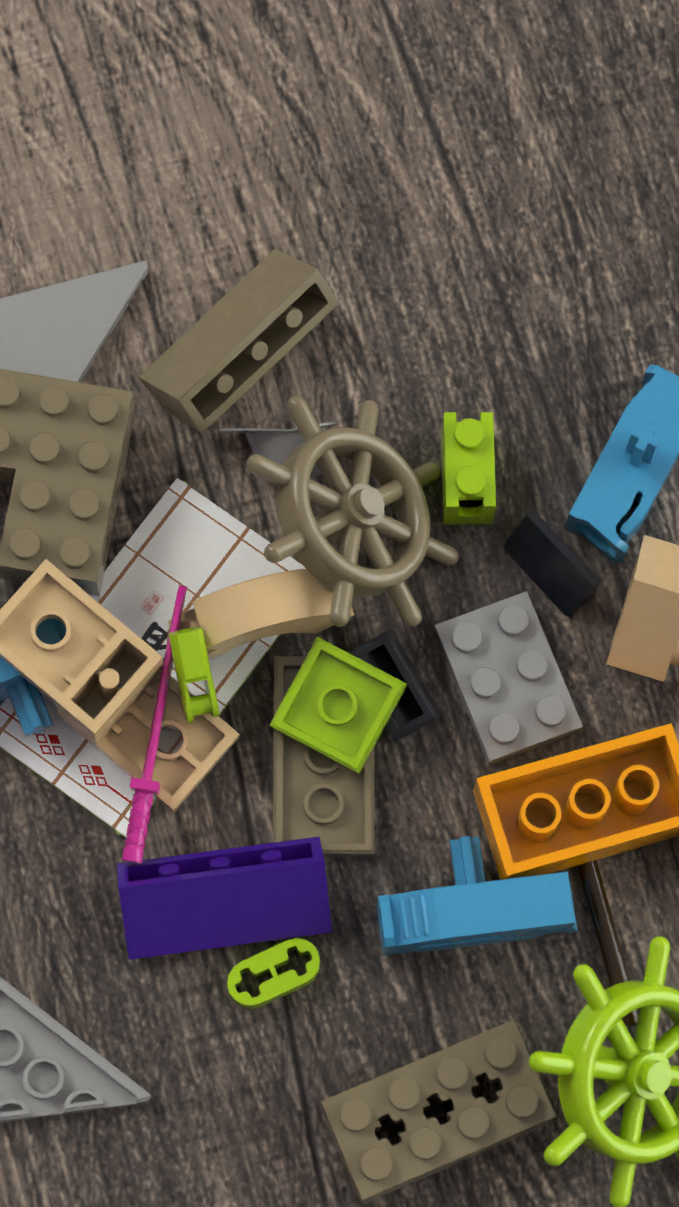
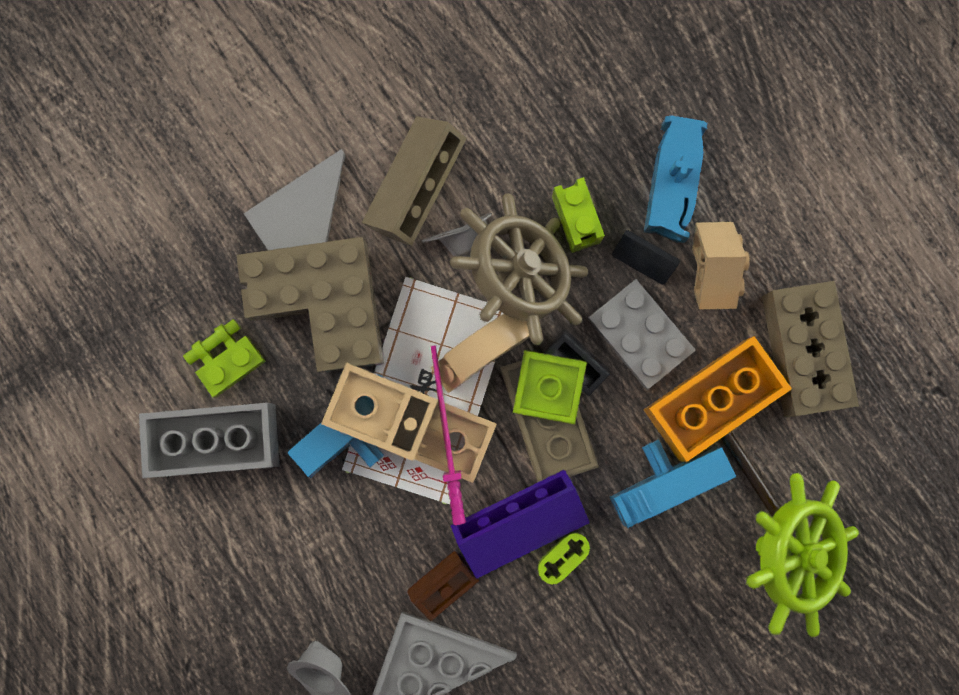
camera: 10 degrees left, 10 degrees up
(73, 957) = (442, 586): none -> reddish brown slope
(192, 666) = (456, 397): lime bar -> none
(424, 1144) = (709, 618): dark tan brick -> none

